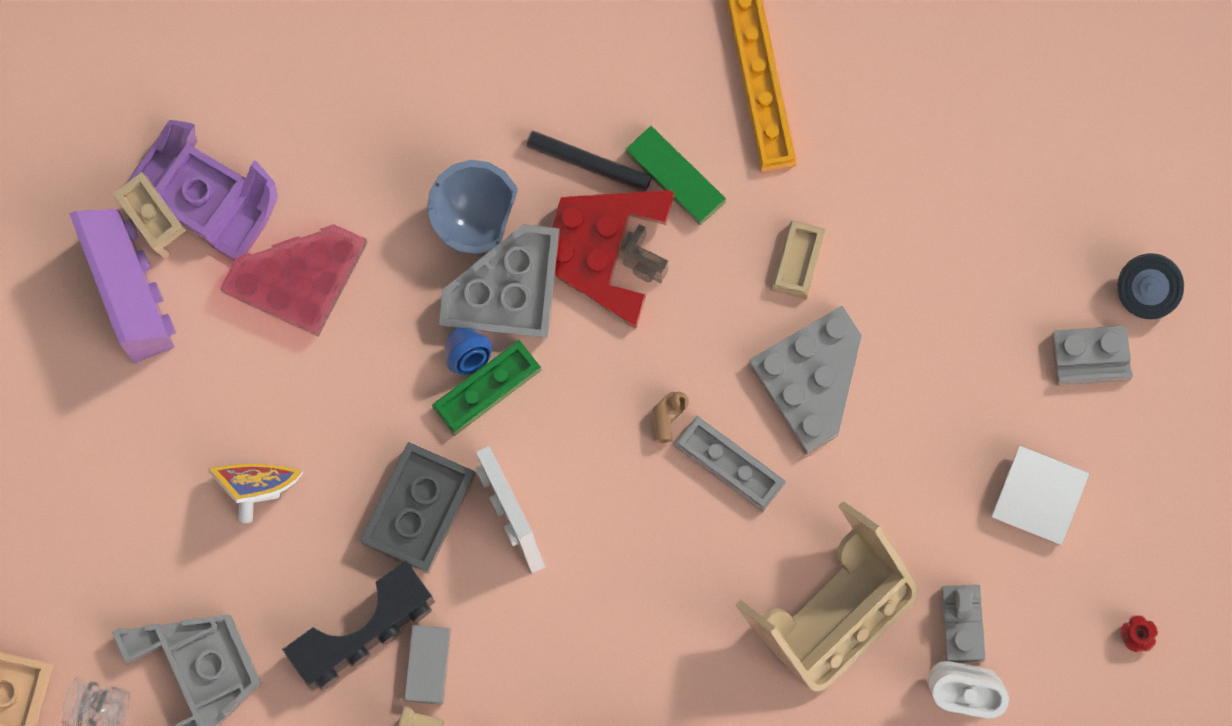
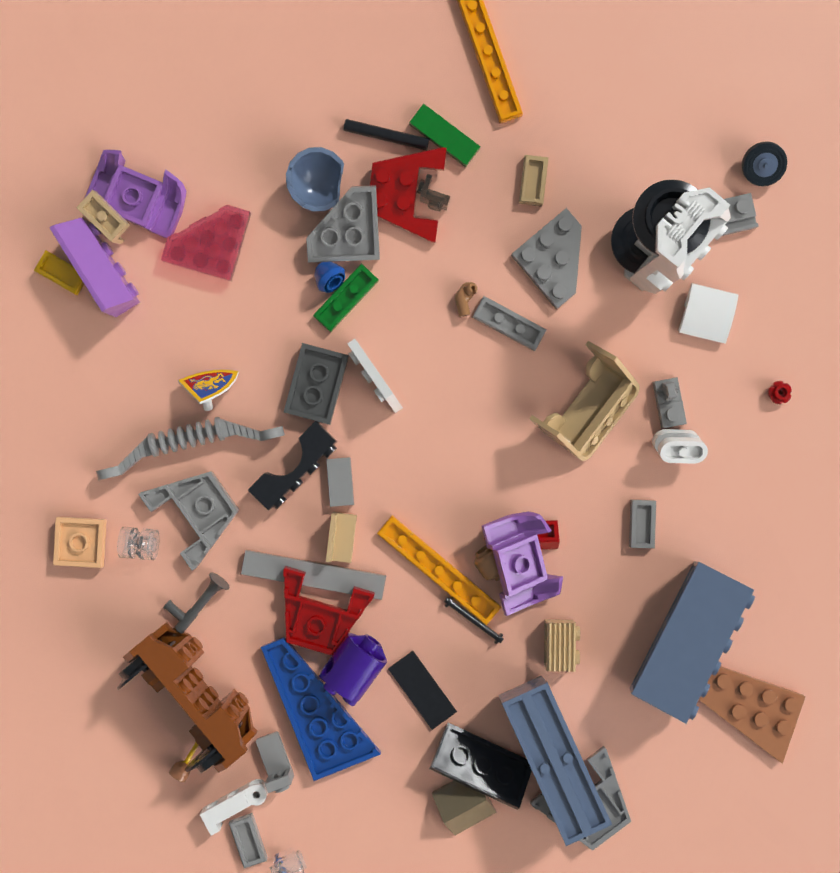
camera: 15 degrees left, 15 degrees up
(66, 285) = (59, 272): none -> yellow tile
(147, 560) = (151, 444): none -> light grey piece
(976, 354) = (667, 233): none -> piece

